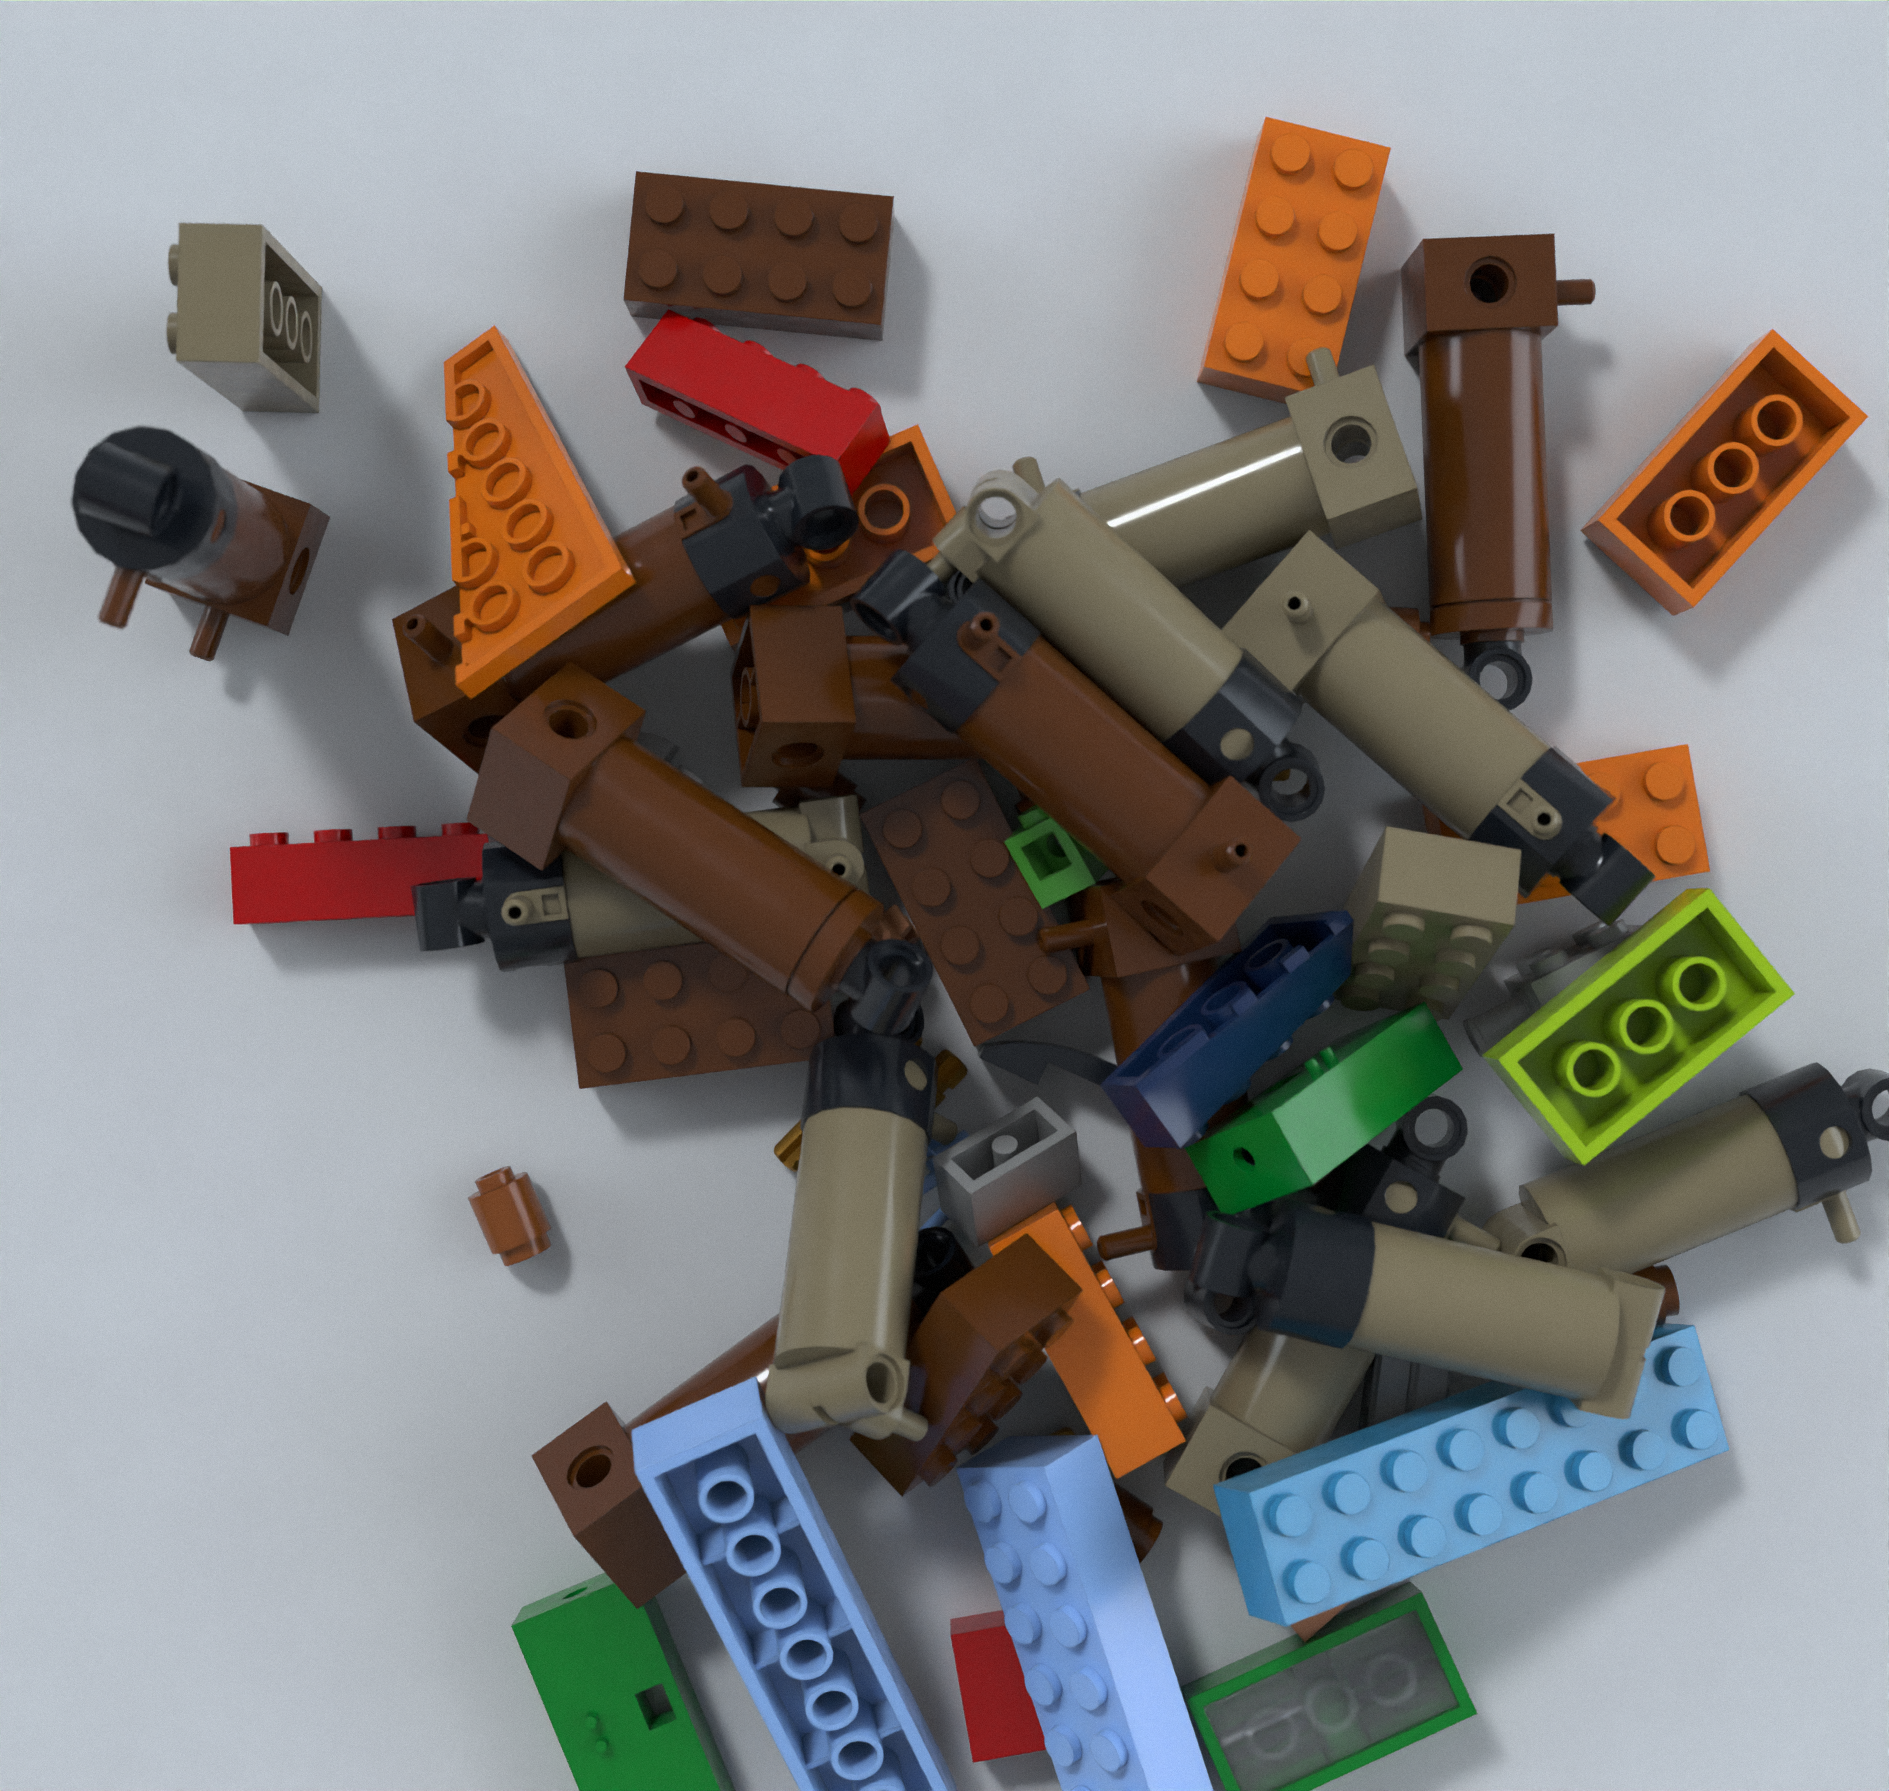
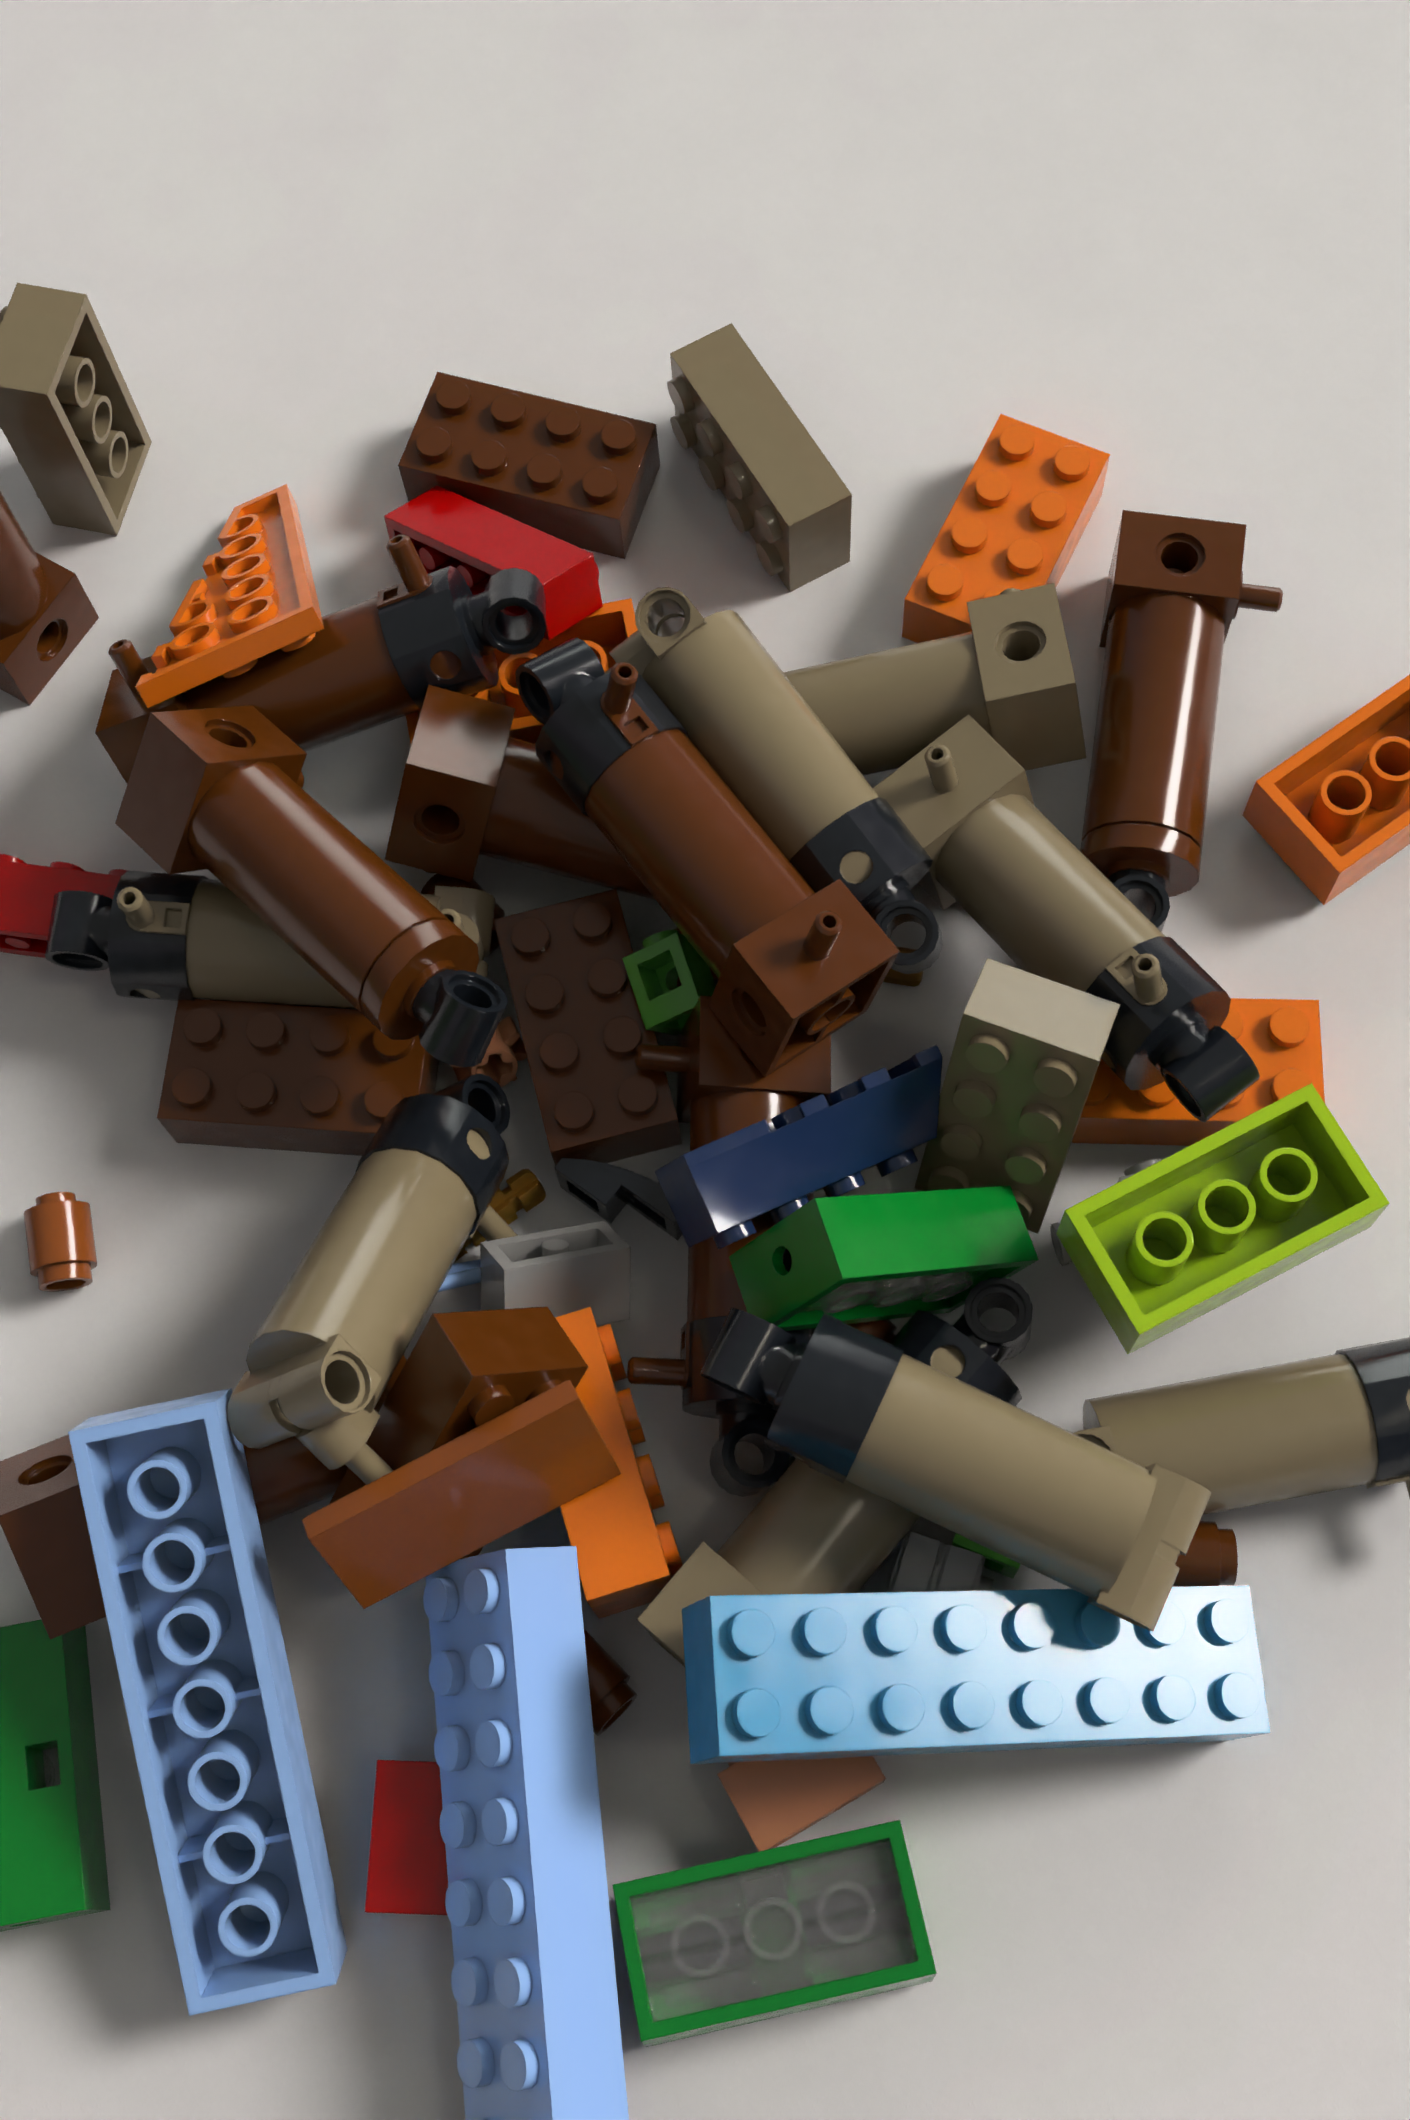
camera: 20 degrees right, 20 degrees down
(994, 1428) = (462, 1495): none -> dark orange tile
(1011, 213) = (760, 458): none -> dark tan brick

